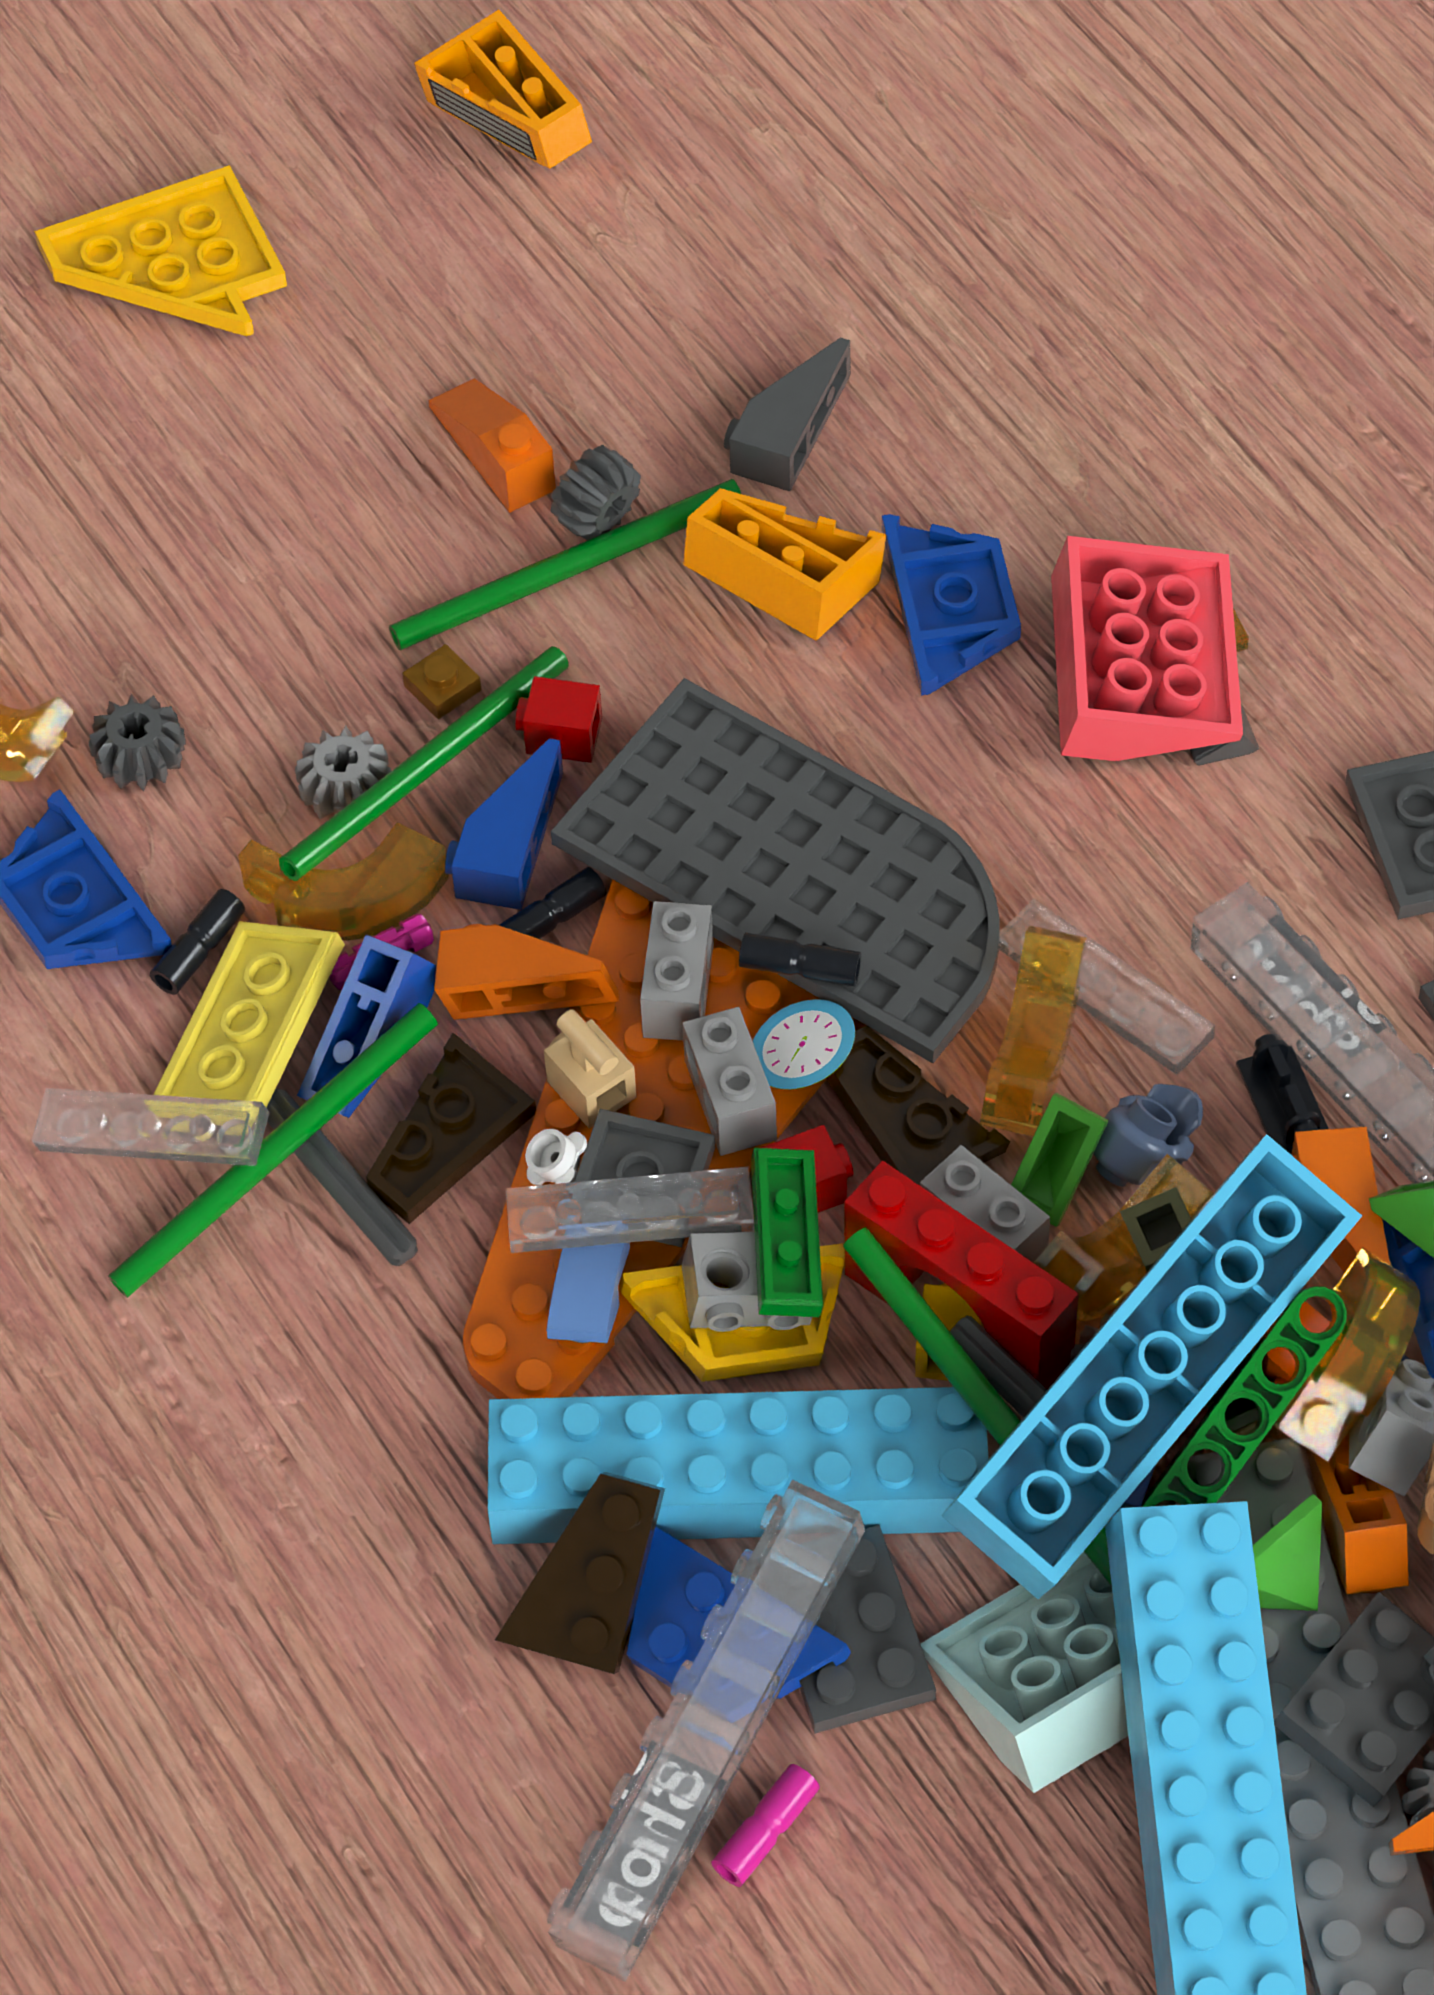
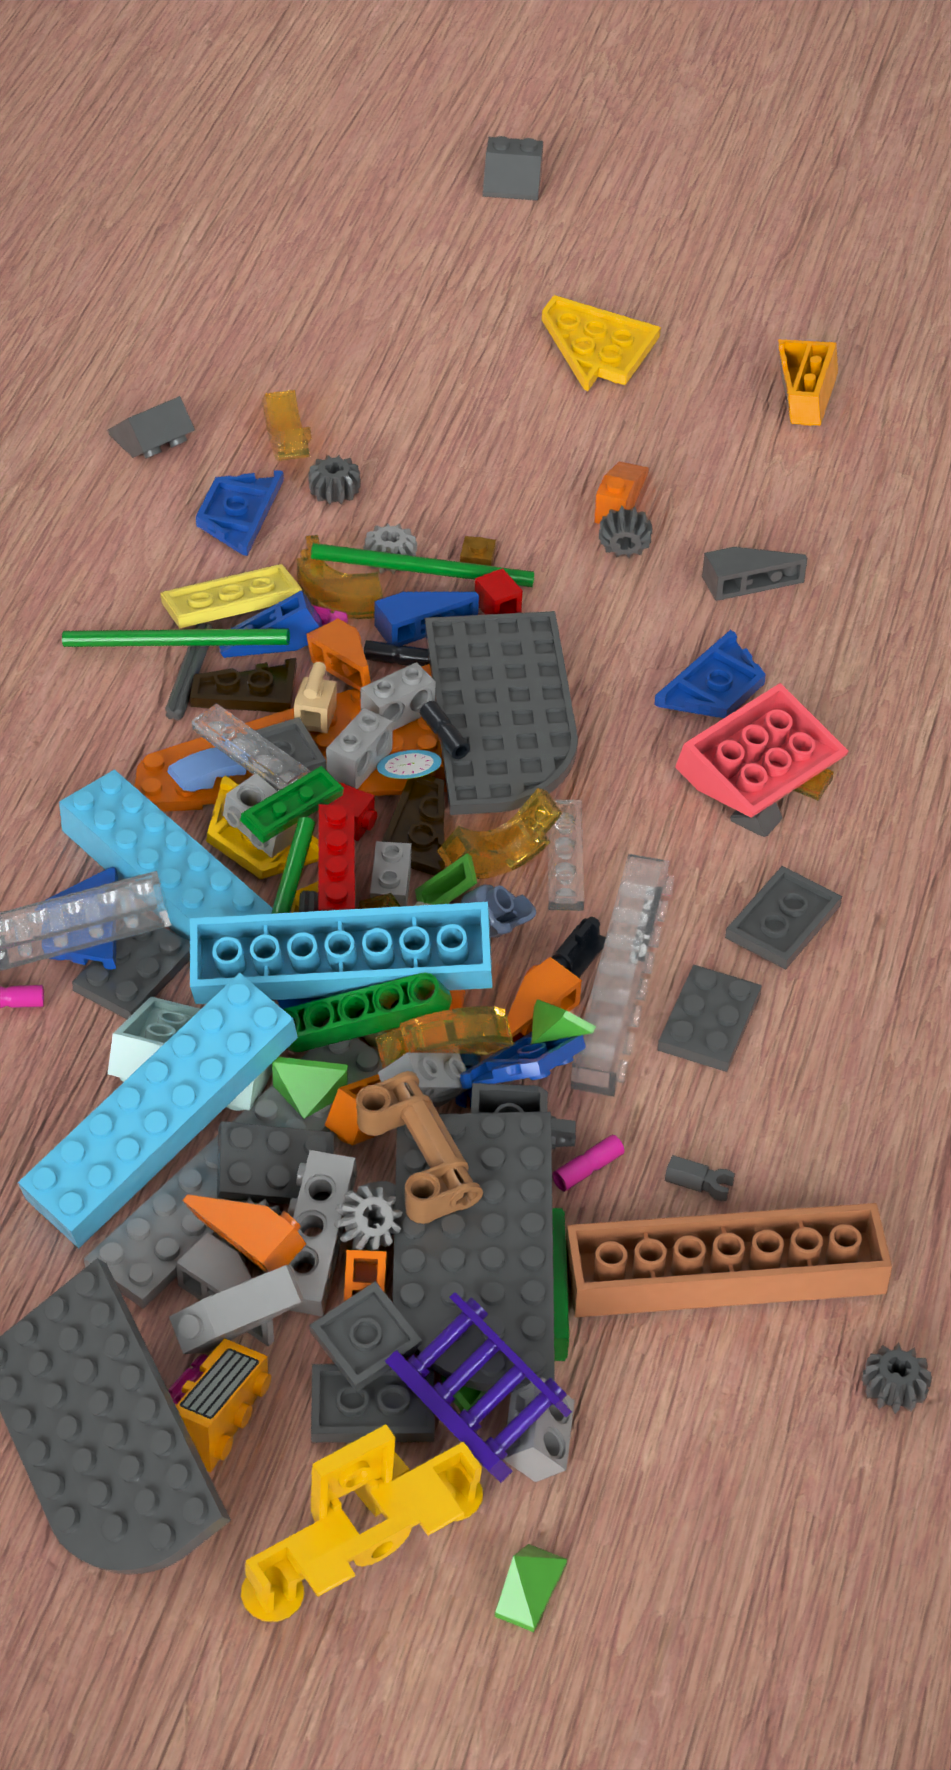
camera: 45 degrees right, 10 degrees down
(151, 1126) = (145, 594): clear plate -> none
(201, 936) = (253, 559): black piece -> none
(550, 570) = (586, 553): green piece -> none
(554, 1156) = (261, 717): white plate -> none
(591, 1579) = (64, 858): dark brown wing -> none
(781, 562) = (663, 613): light orange wedge -> none

